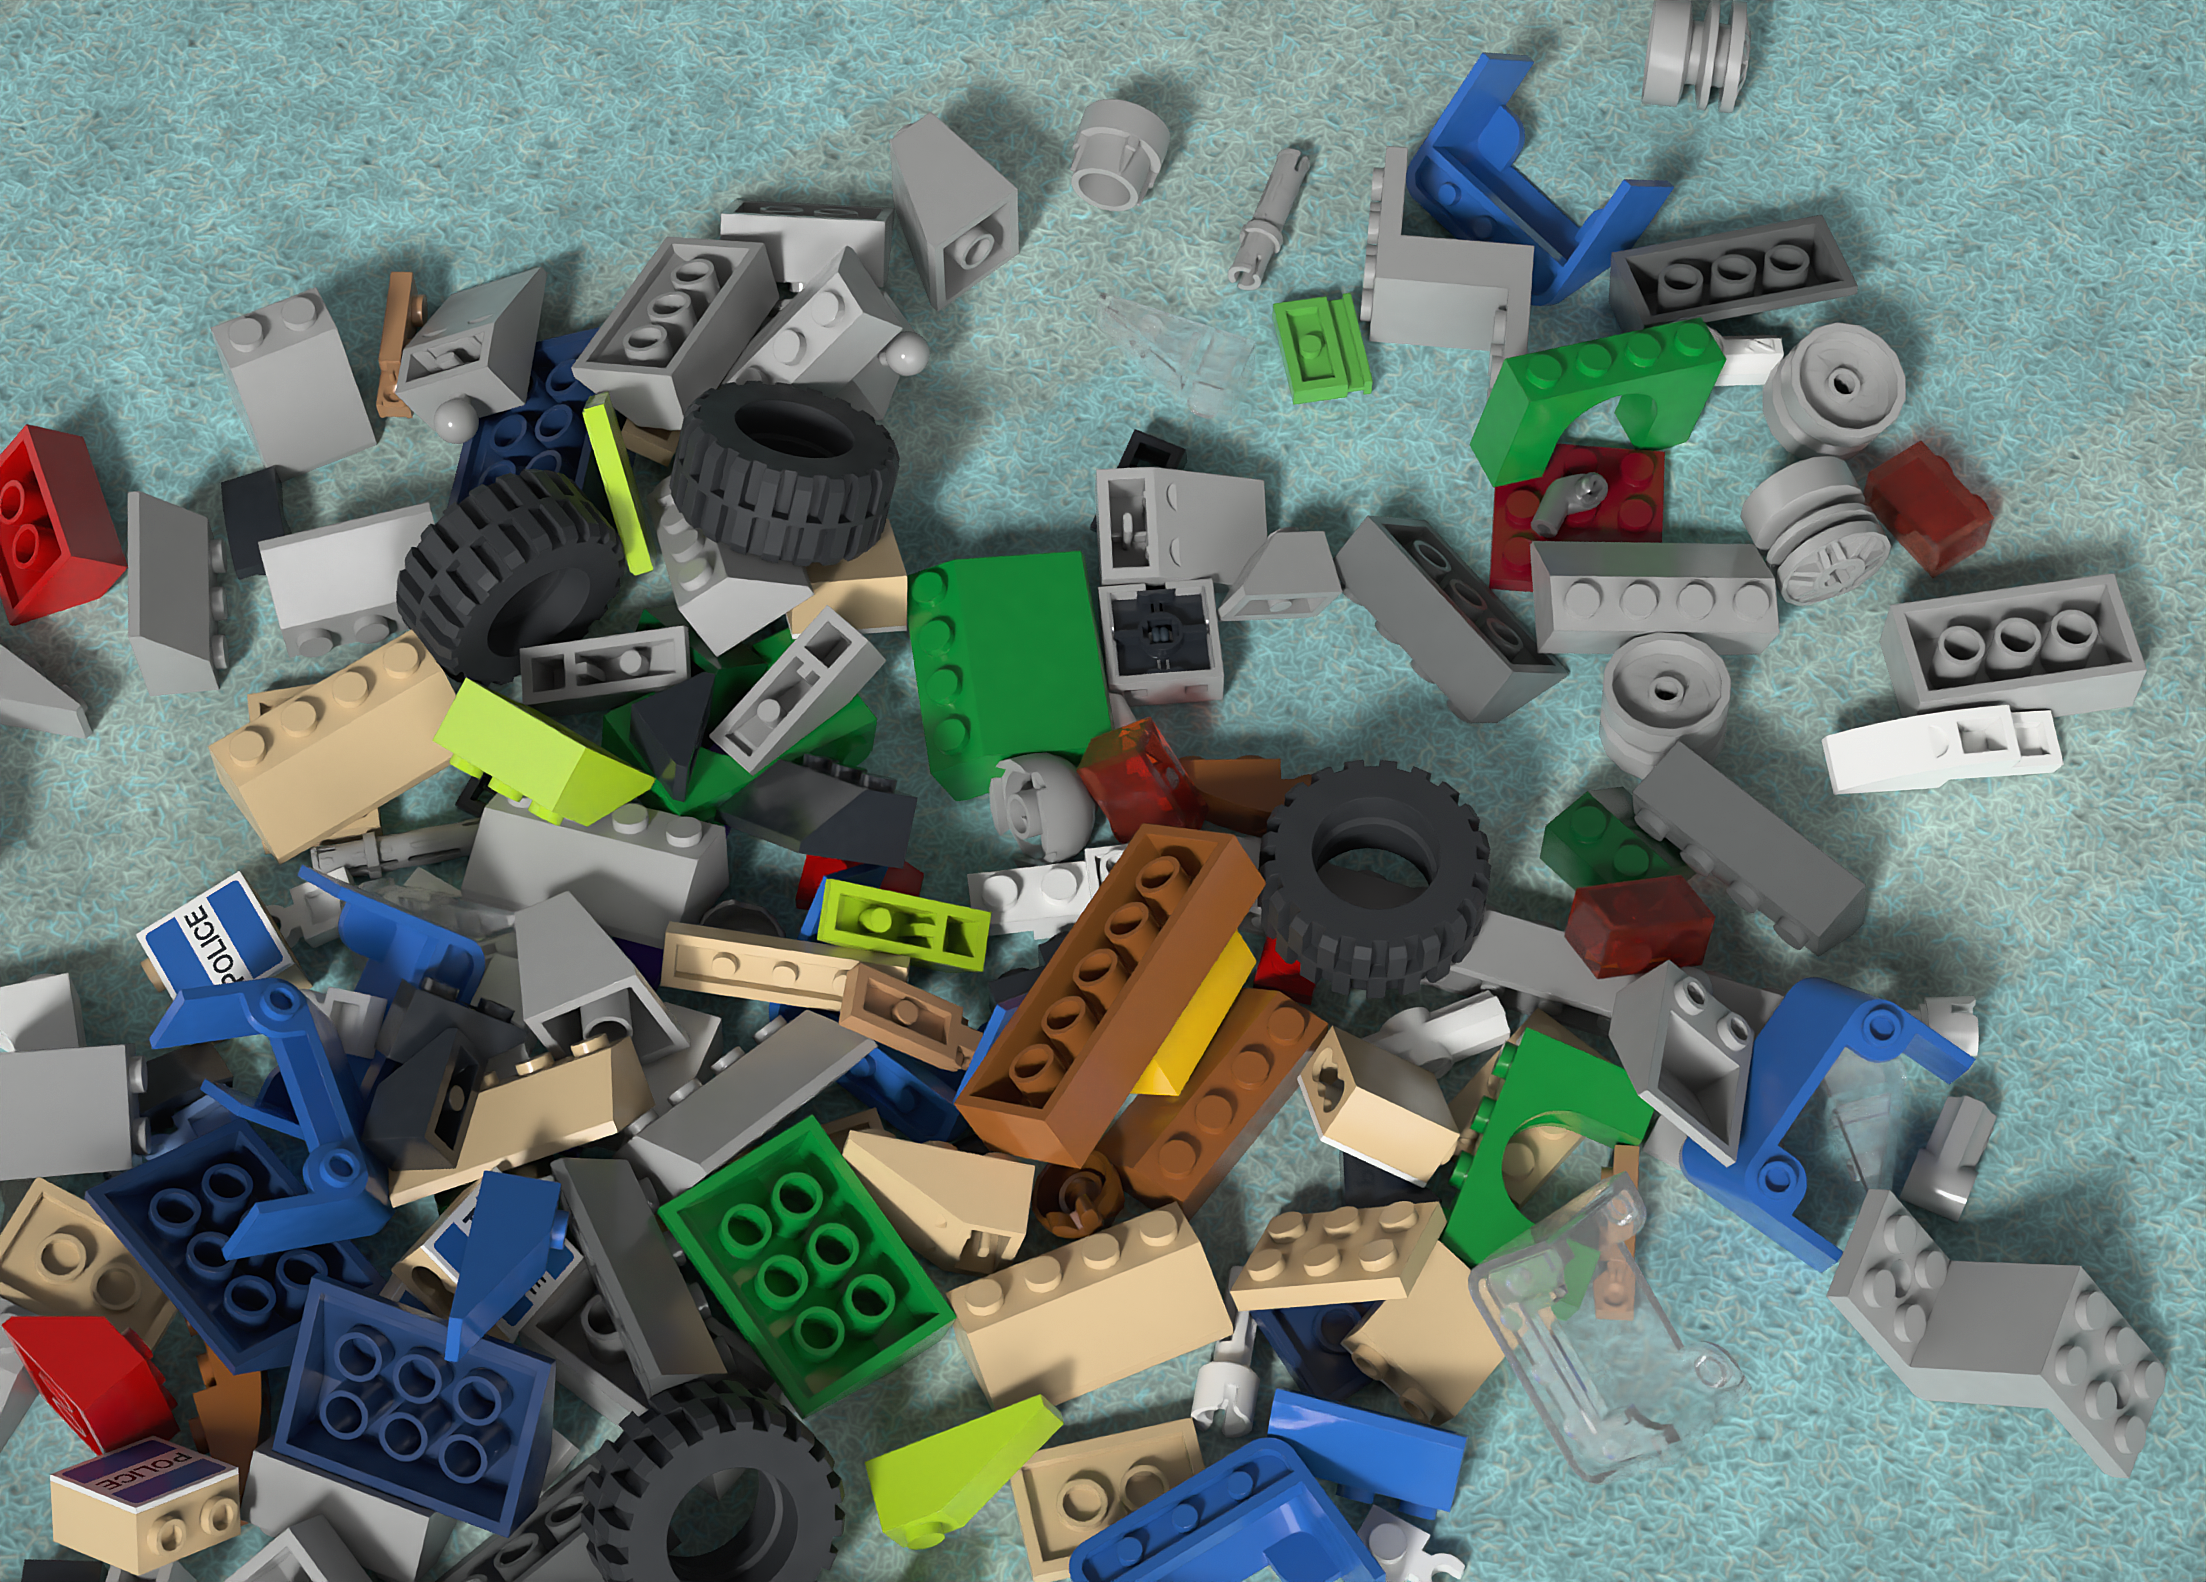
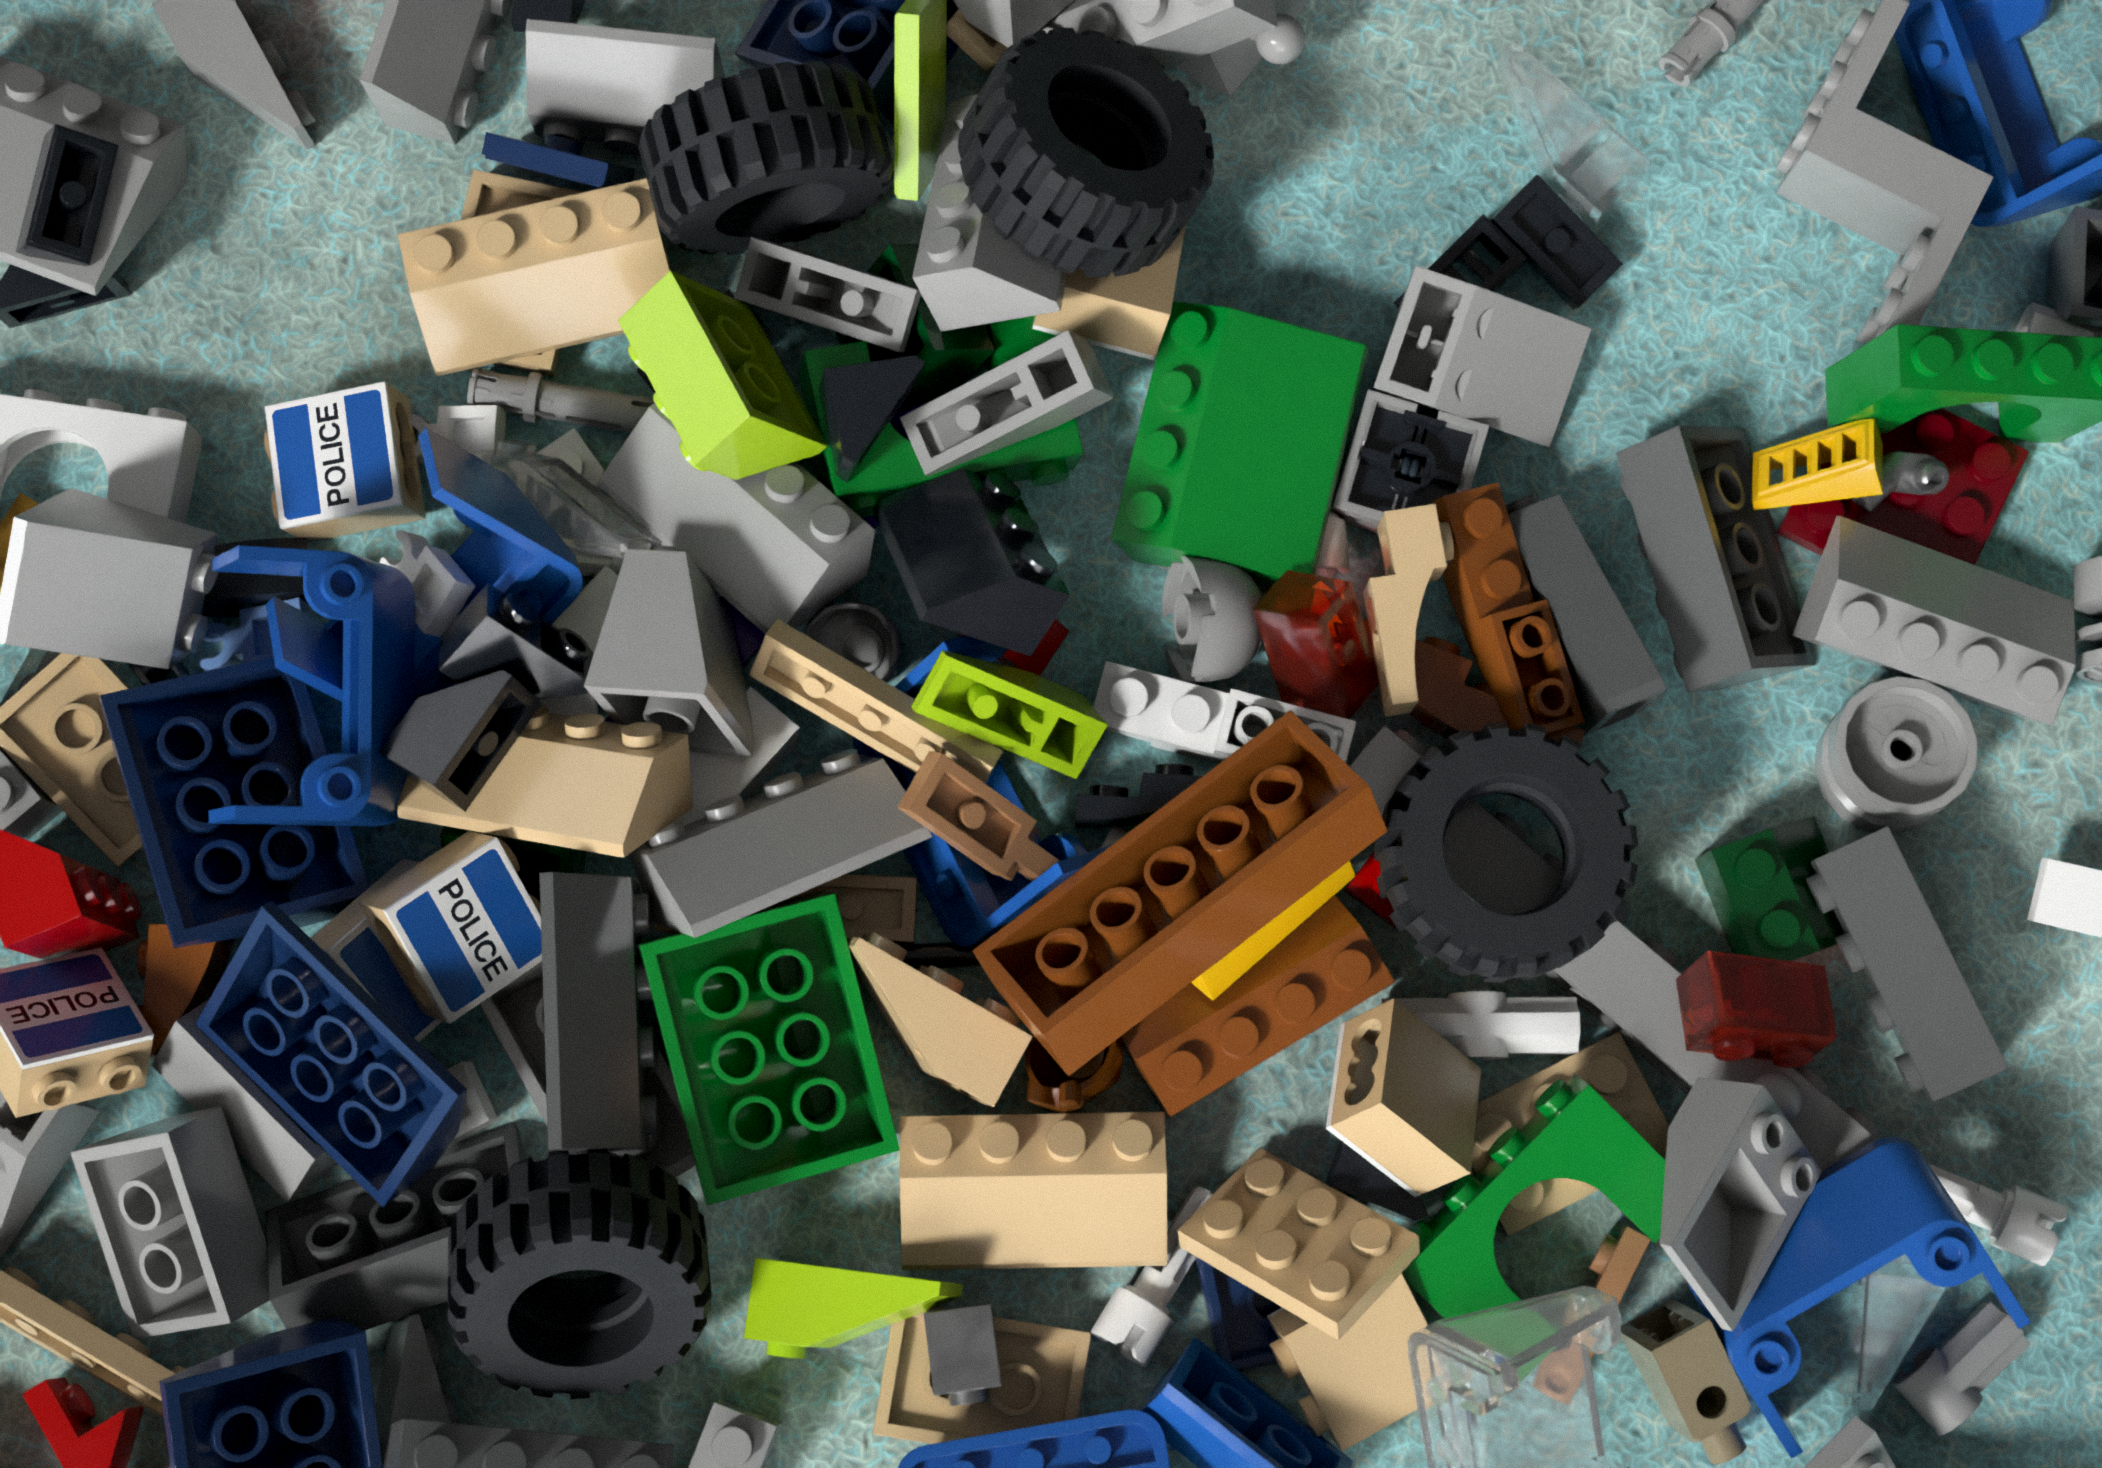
camera: 20 degrees right, 20 degrees up
(315, 654) = (556, 158): none -> dark blue plate
(504, 1253) = (455, 958): blue slope -> none
(1084, 1462) = (963, 1353): none -> flat silver brick
(1194, 691) = (1412, 554): none -> tan slope
(1206, 431) = (1556, 242): none -> black plate
(1273, 706) = (1498, 615): none -> dark orange slope
(1284, 579) = (1563, 450): light grey slope -> none
(1321, 348) = (1720, 187): bright green plate -> none
(1351, 694) = (1599, 643): none -> dark grey slope
(1499, 514) = (1842, 480): none -> yellow slope
(1726, 1247) = (1690, 1377): none -> dark tan torso

